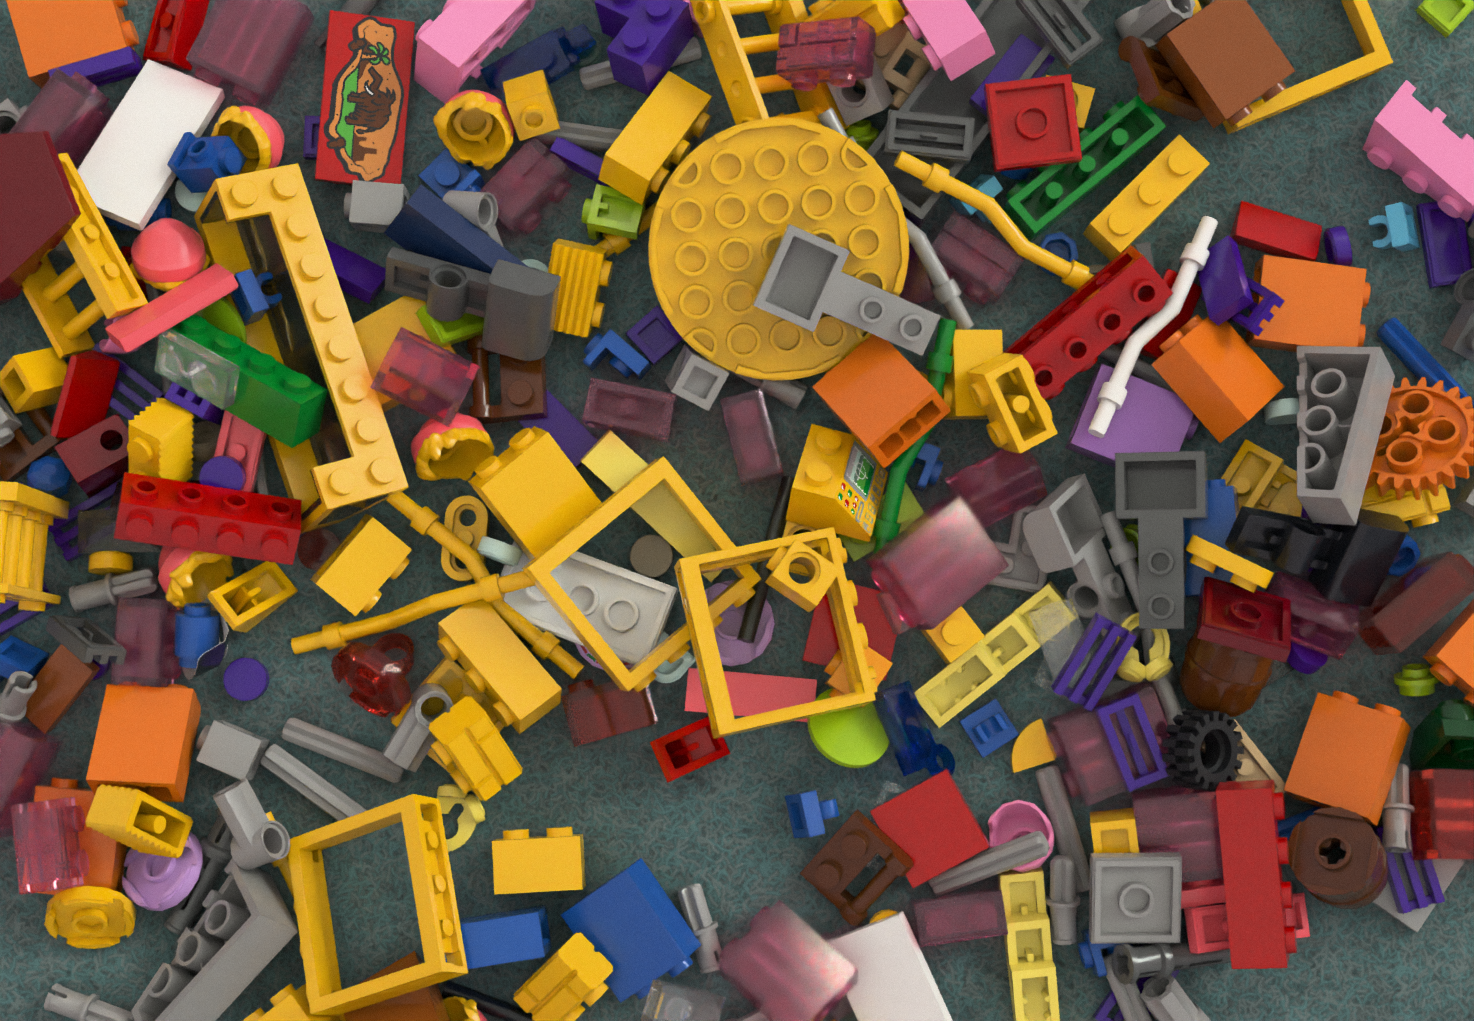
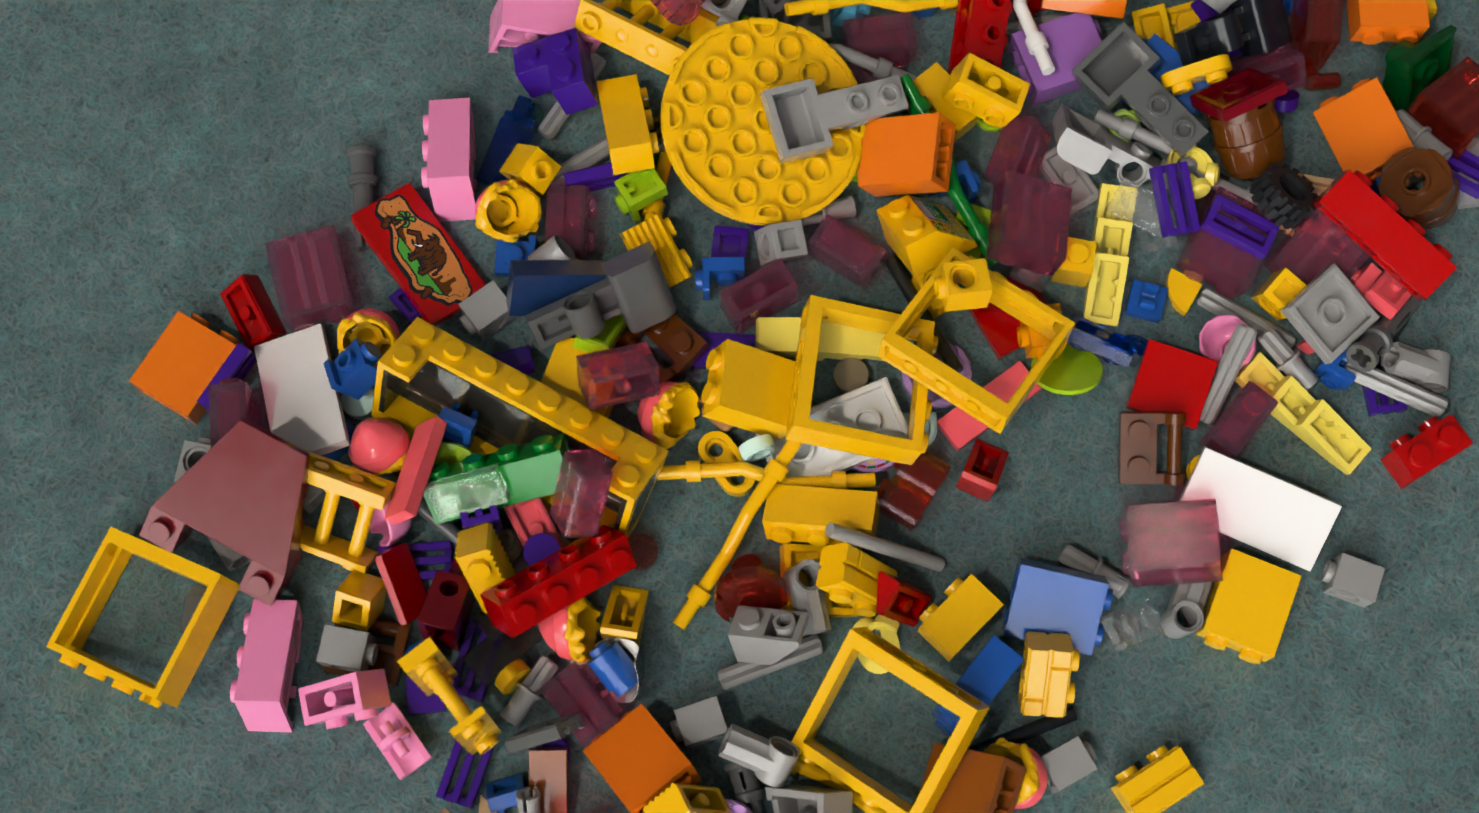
camera: 45 degrees left, 10 degrees down
(246, 679) = (666, 673): dark purple tile -> none
(286, 460) = (581, 493): none -> clear pink brick
(309, 783) = (768, 702): light grey axle -> none
(351, 725) = (766, 634): none -> light grey slope
(362, 565) = (678, 533): yellow brick -> none
(500, 799) = (900, 599): none -> red slope
(522, 744) = (884, 547): none -> light grey bar
(808, 813) = (1091, 442): blue tile -> none
(1357, 661) = (1320, 81): none -> clear red arm
(1415, 680) = (1357, 61): lime plate -> none

